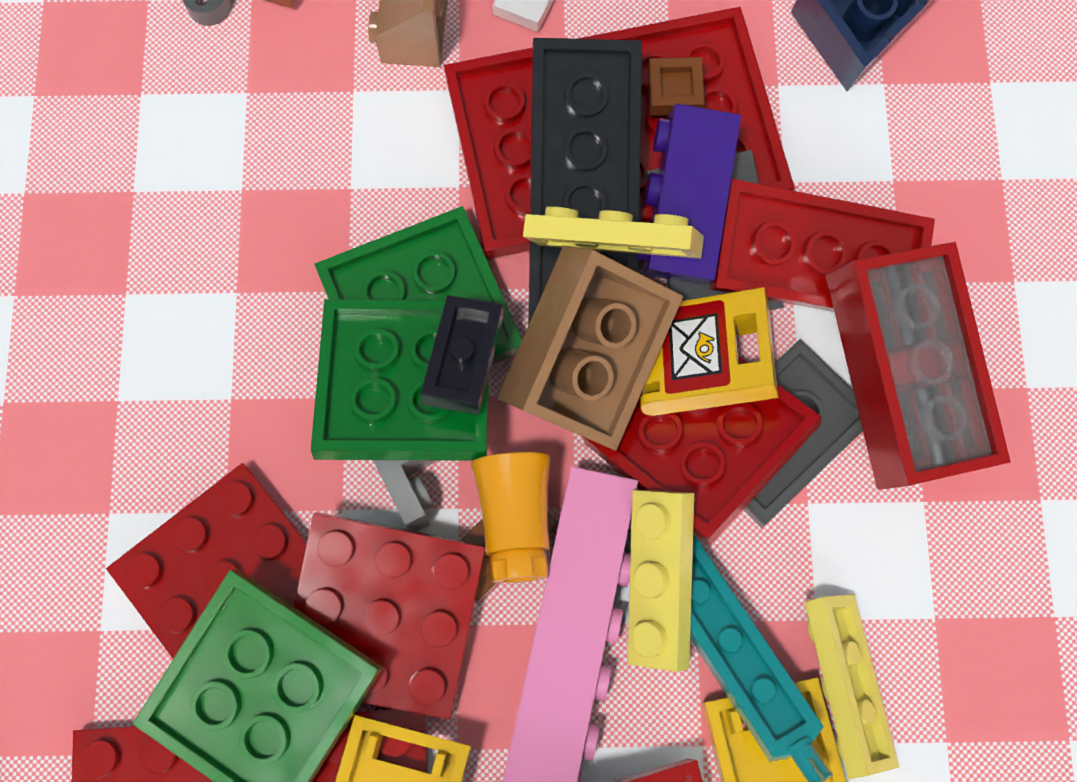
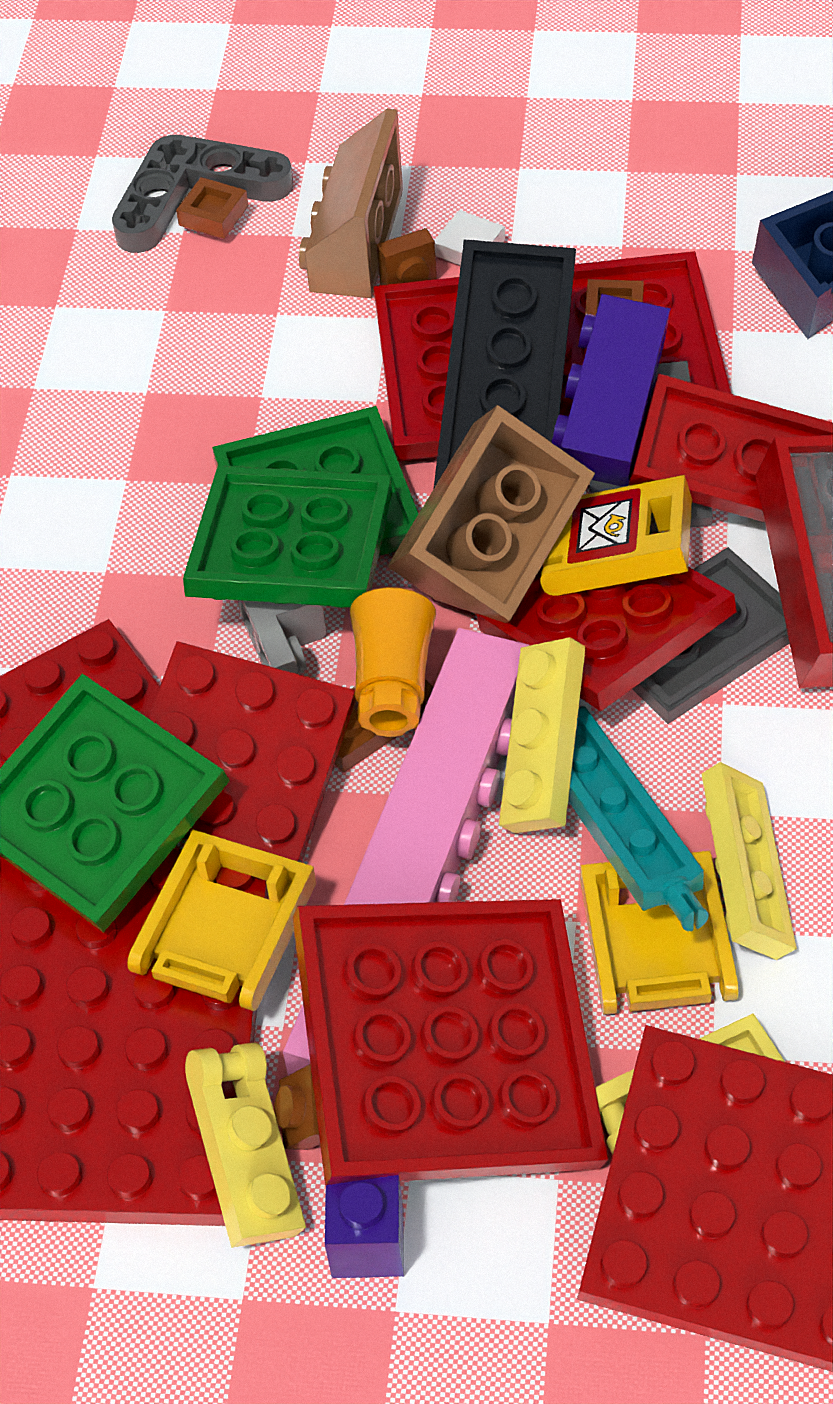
camera: 10 degrees right, 20 degrees down
(462, 355) = (353, 505): black plate -> none
(472, 33) = (407, 258): none -> dark orange plate
(615, 233) = (542, 405): light yellow plate -> none

